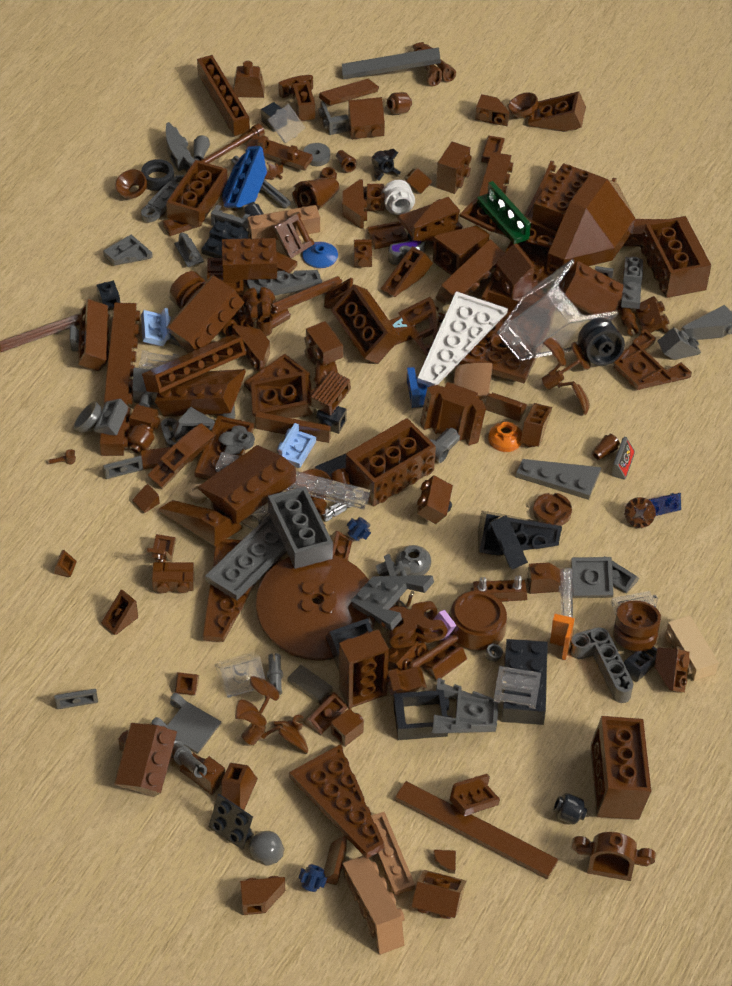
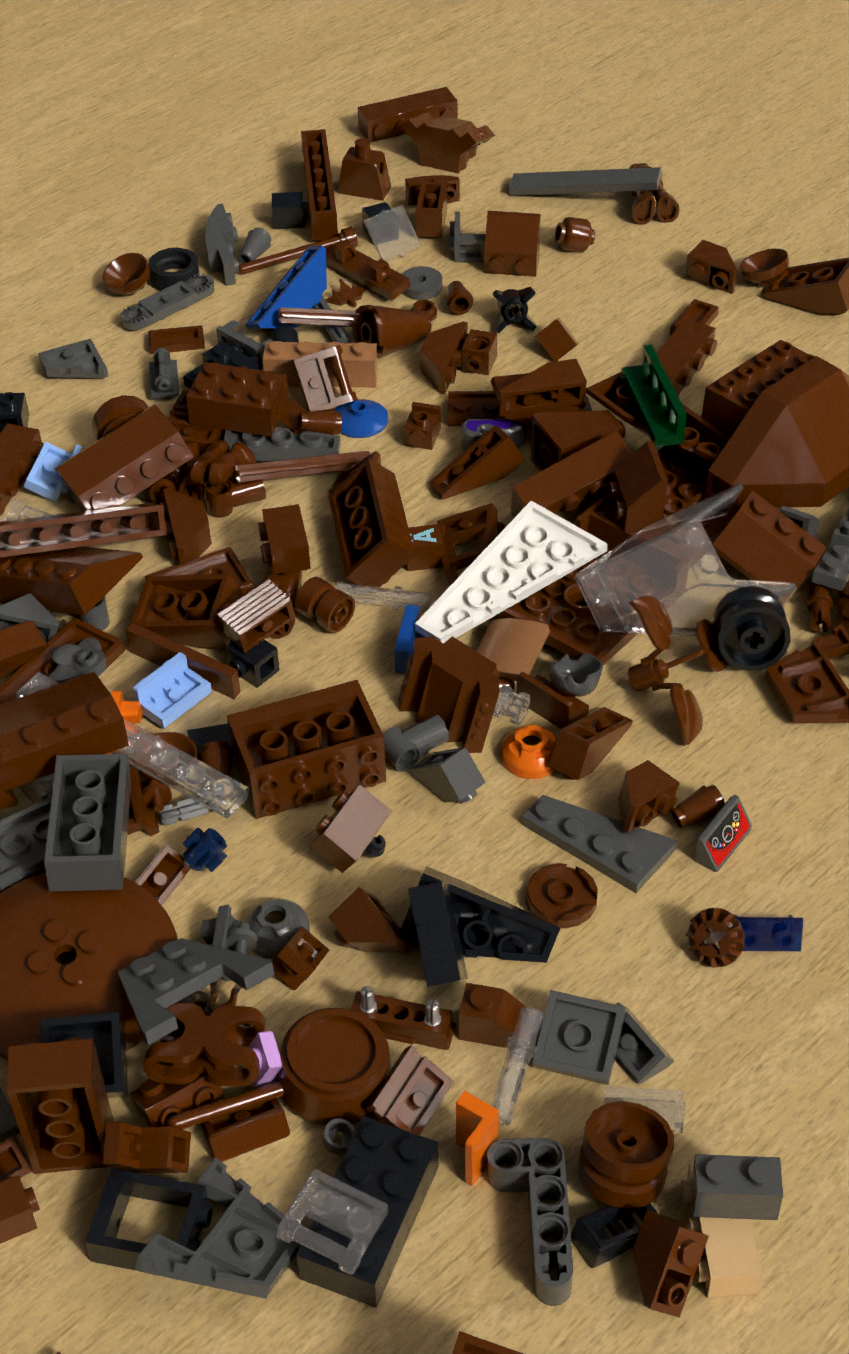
camera: 20 degrees right, 5 degrees down
(197, 193) = (211, 300): reddish brown brick -> none
(210, 117) = (289, 210): none -> black brick
(254, 30) = (384, 118): none -> reddish brown brick
(270, 193) = (316, 317): none -> axle
(290, 47) = (445, 141): none -> reddish brown slope
(303, 262) = (320, 421): none -> reddish brown cone
(348, 92) = (478, 207): reddish brown tile -> none
(359, 377) = (324, 603): none -> reddish brown wheel
(386, 365) = (395, 598): none -> clear pin
(398, 197) = (512, 343): white piece -> none
(438, 571) = (299, 958): none -> reddish brown slope
(453, 167) = (615, 329): reddish brown brick -> none
(464, 548) = (368, 925): none -> reddish brown slope
(469, 459) = (449, 775): none -> dark grey slope
(489, 414) = (512, 705): none -> clear wheel
(517, 388) = (576, 676): none -> dark grey hair
(520, 622) = (410, 1092): none -> reddish brown plate
(577, 446) = (645, 795): none -> reddish brown slope
(696, 626) = (737, 1187): none -> dark grey brick

